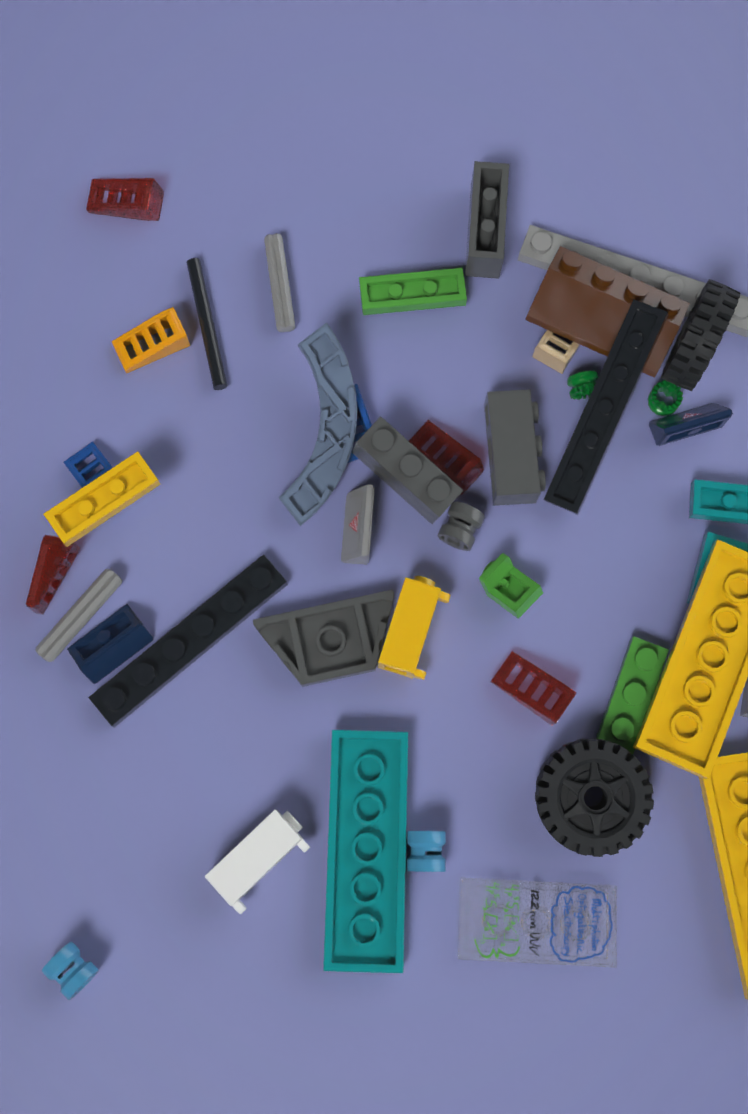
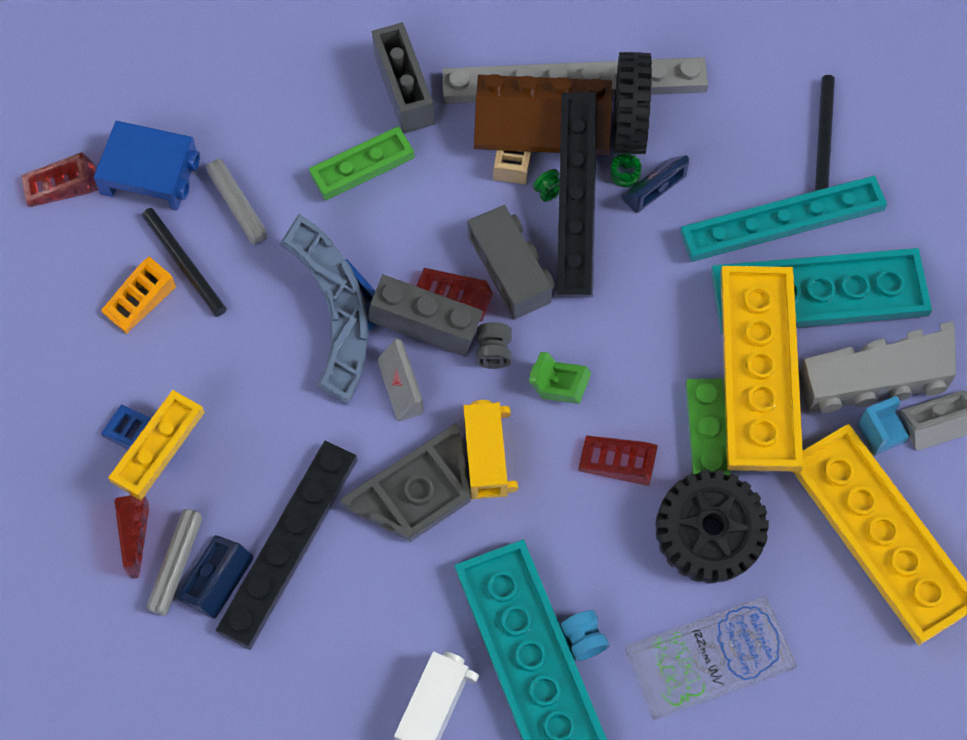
camera: 20 degrees left, 10 degrees down
(210, 213) = (147, 163): none -> blue panel

